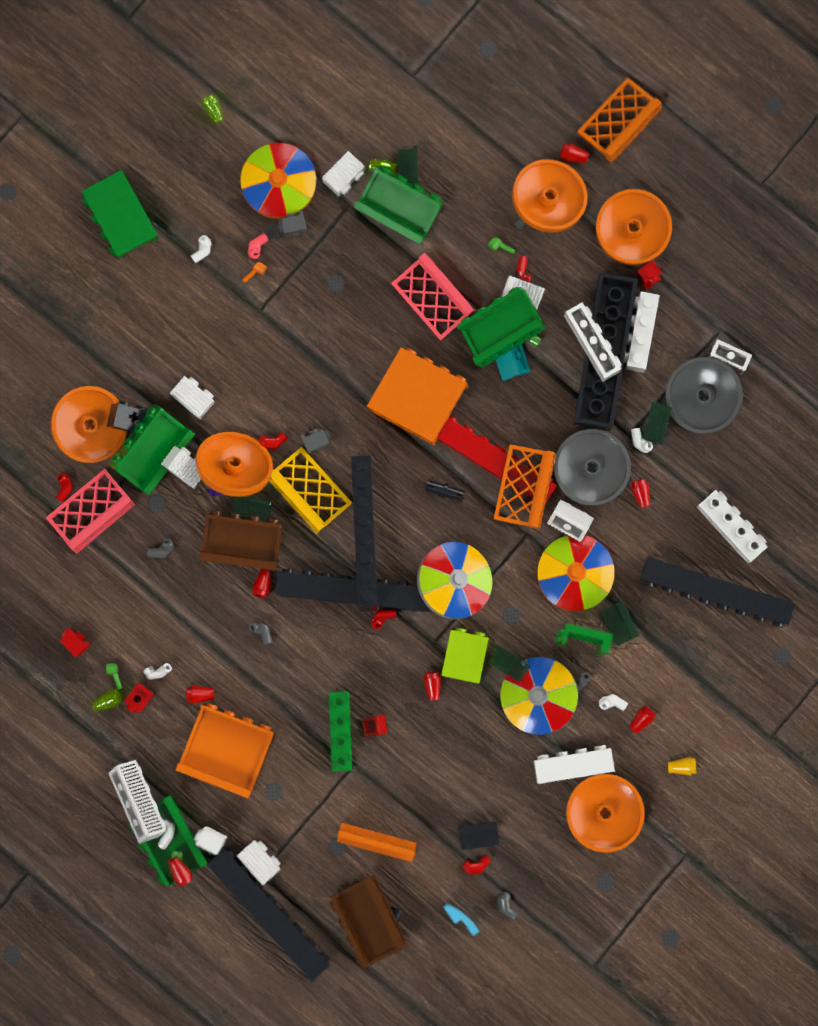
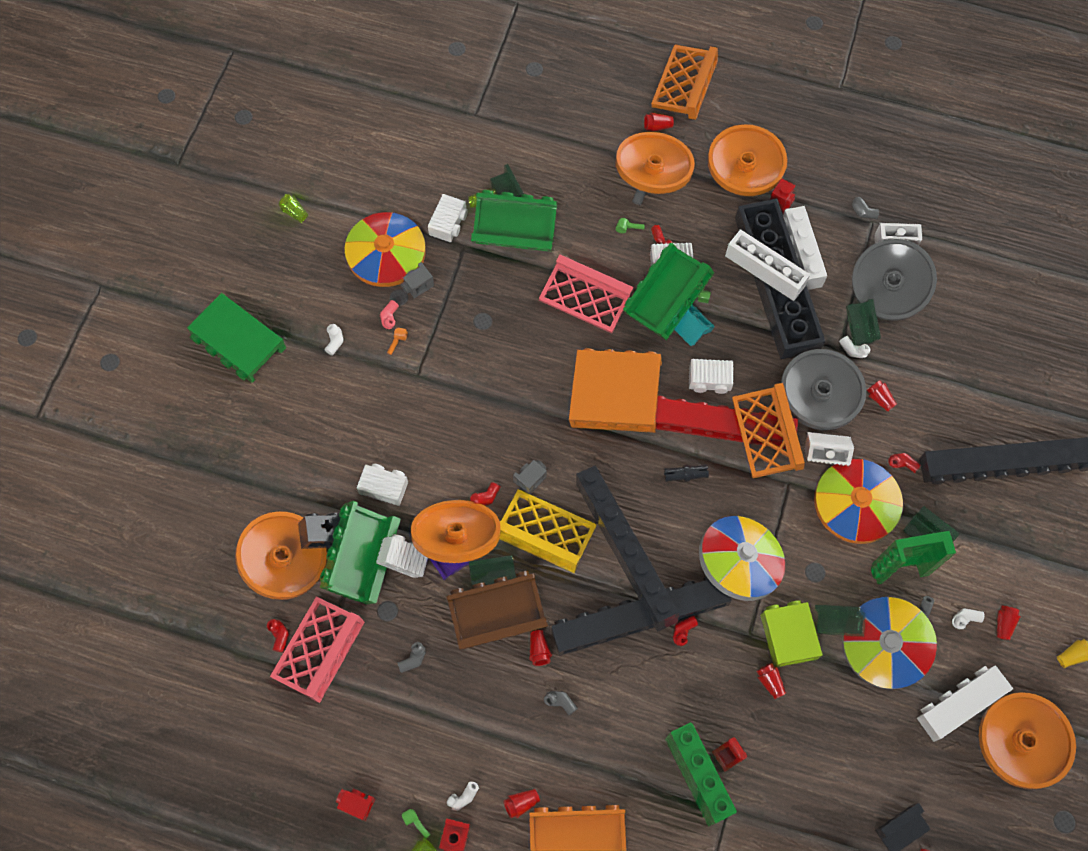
camera: 20 degrees left, 15 degrees down
(504, 415) = (711, 375): none -> white brick
(629, 554) = (903, 460): none -> red arm
(715, 315) = (863, 210): none -> dark grey arm
(732, 526) = (987, 391): white brick -> none

